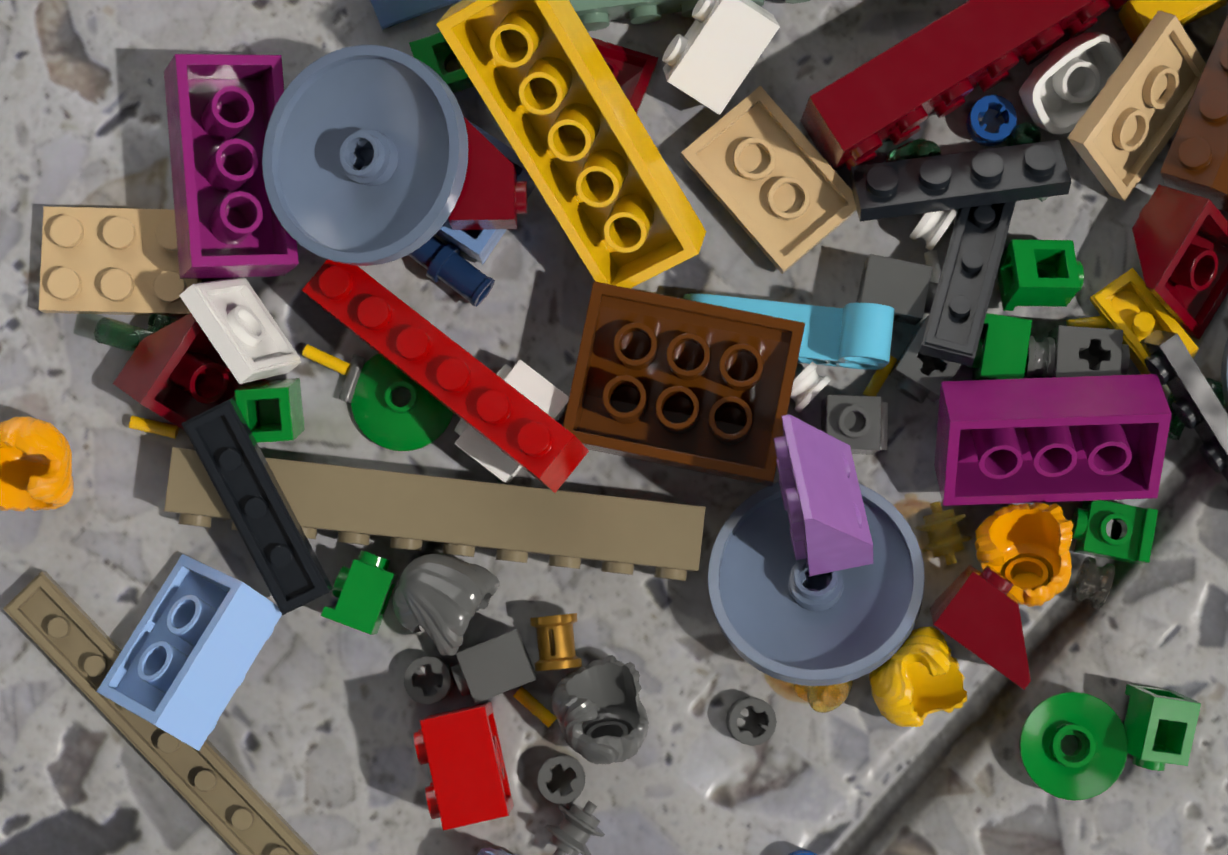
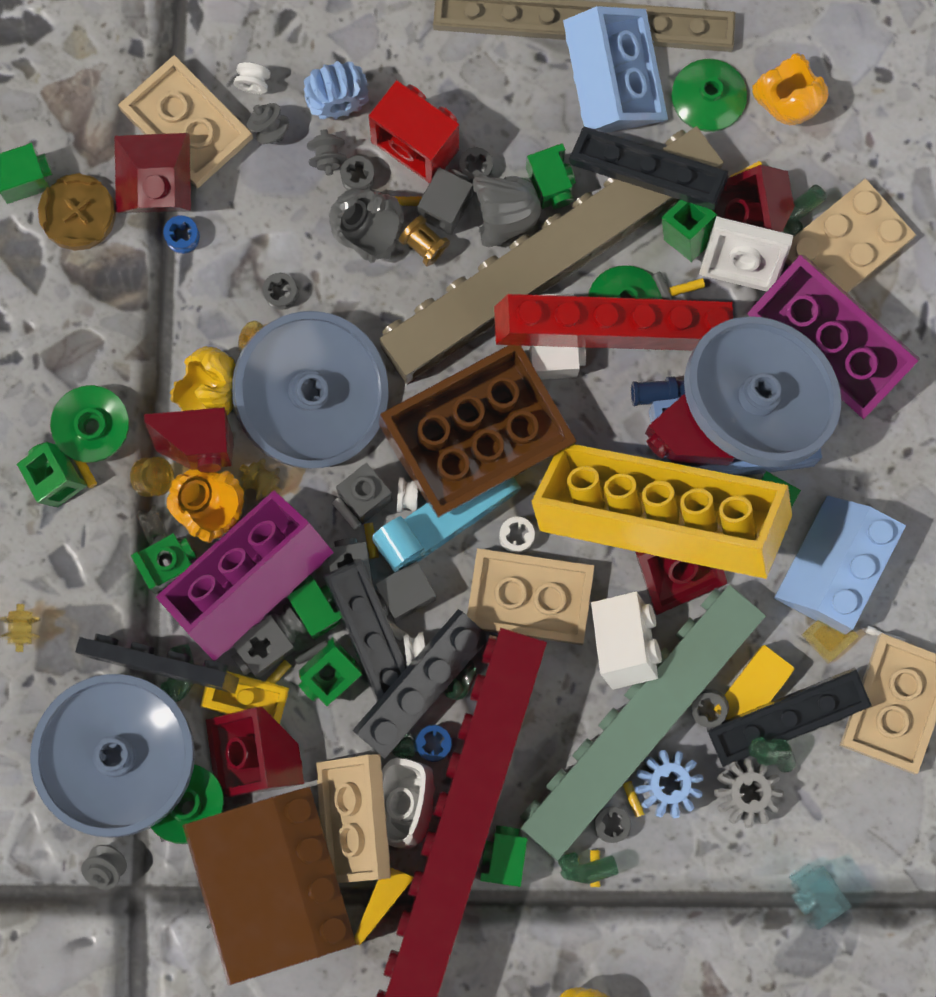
camera: 135 degrees right, 5 degrees down
(139, 548) = (708, 111): none -> green dish
(718, 241) = (528, 537): none -> white bush
(822, 499) = (345, 424): medium lavender slope -> none
(1036, 315) = (309, 653): none -> dark grey piece
(1053, 633) = (151, 476): none -> clear yellow wheel
(1116, 695) = (86, 473): none -> yellow piece

